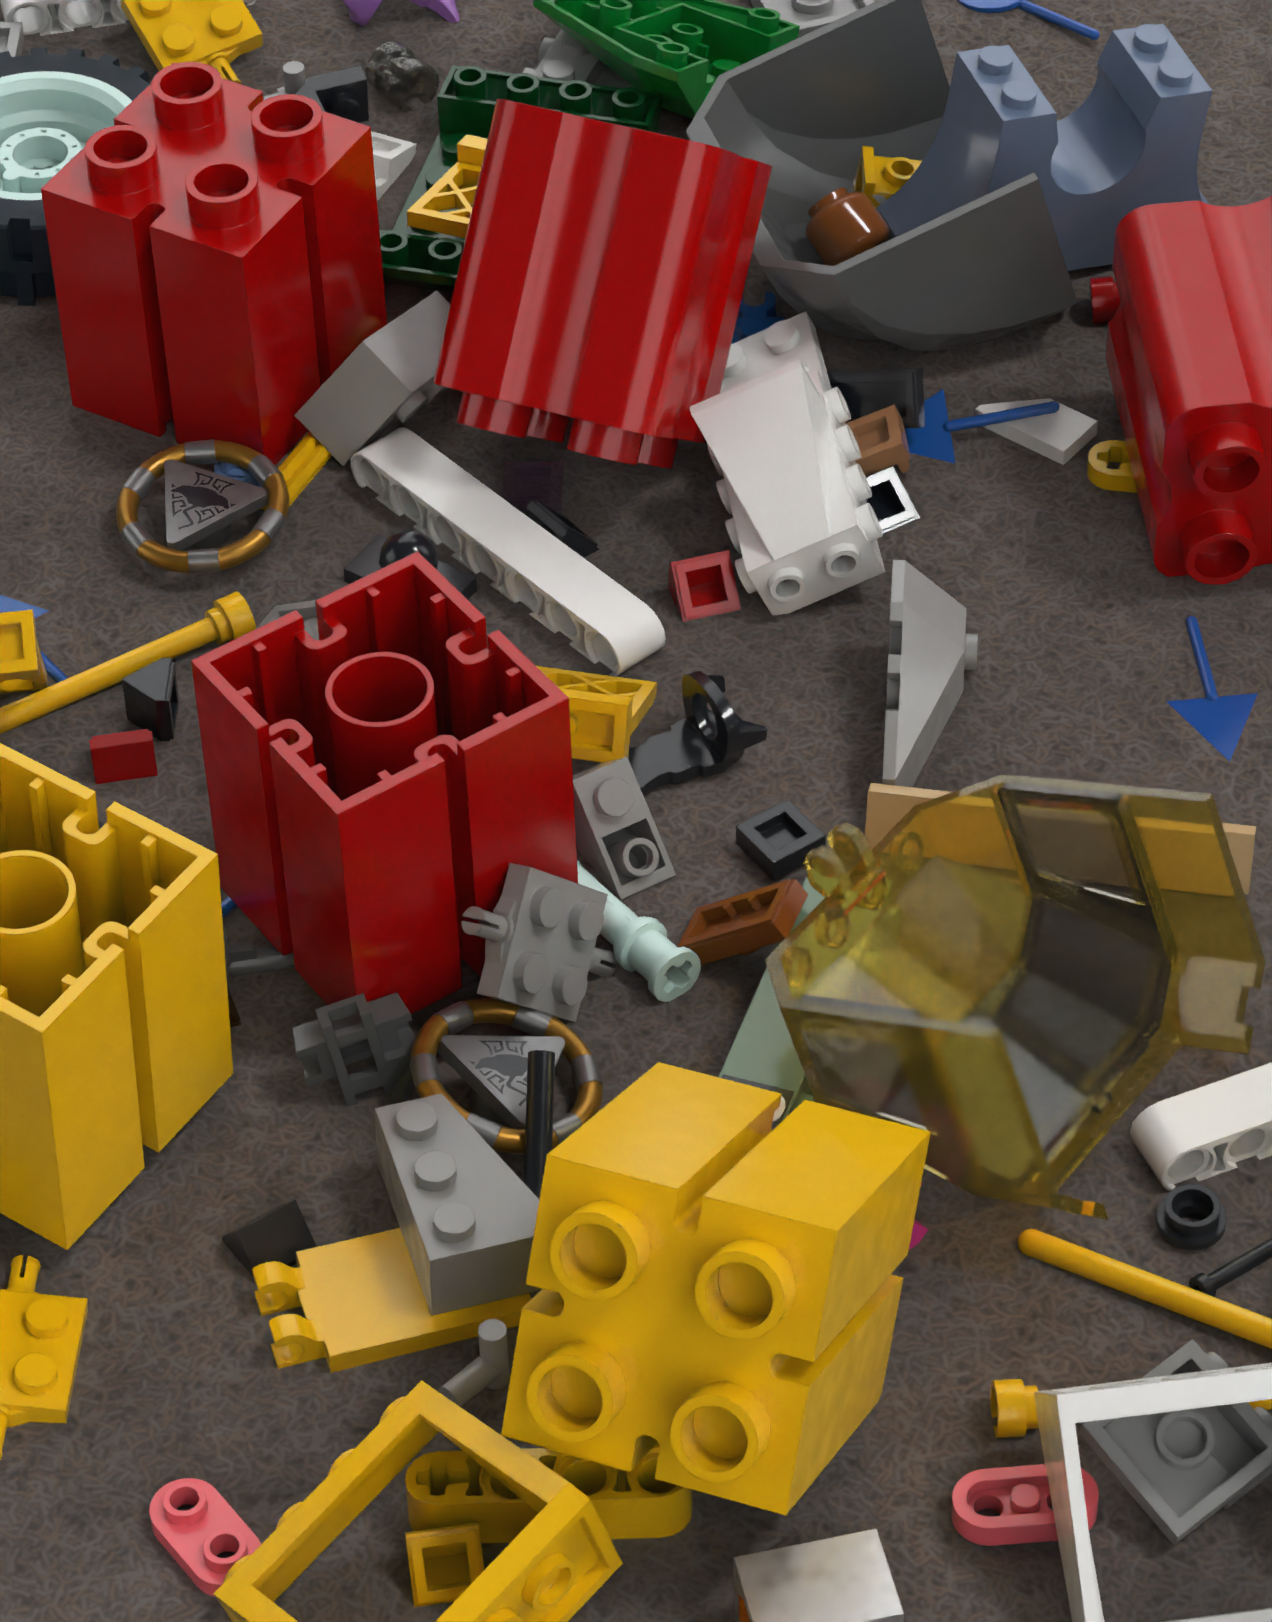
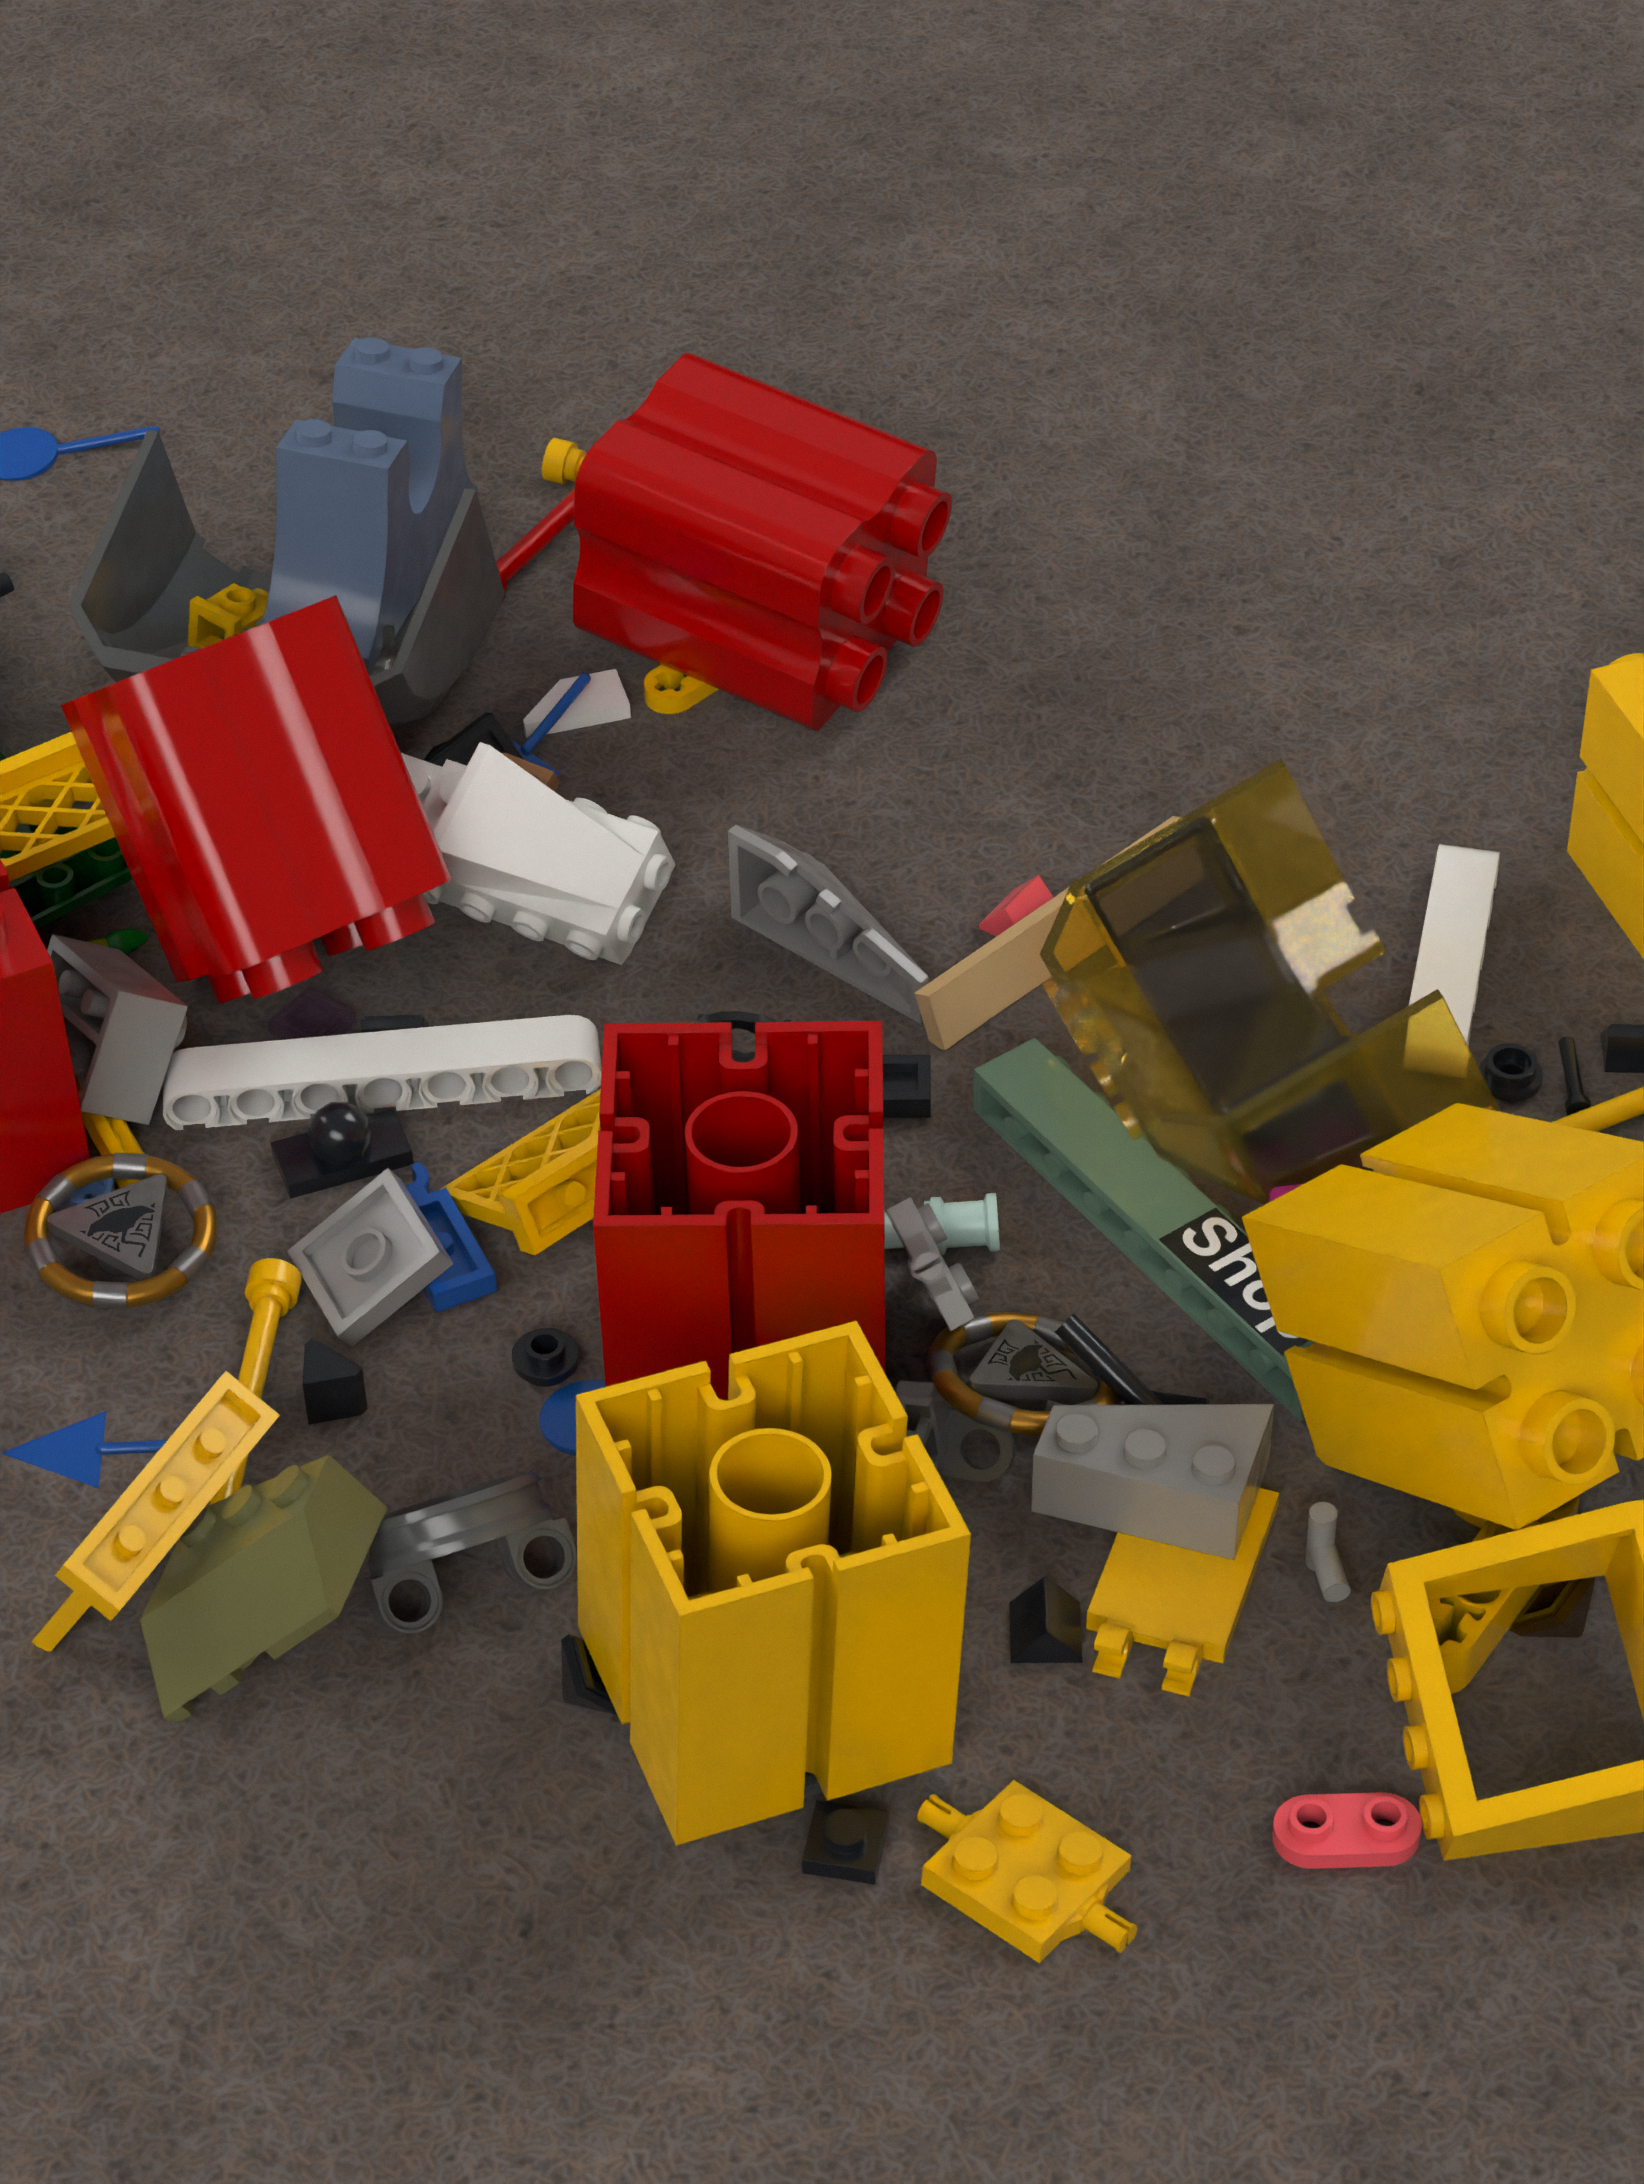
camera: 55 degrees left, 0 degrees up
(123, 756) = (366, 1441): red slope -> none
(443, 1562) = (1506, 1686): yellow slope -> none
(703, 586) = (556, 981): red slope -> none
(744, 921) = (989, 1146): dark orange plate -> none
(1214, 717) = (992, 786): blue piece -> none

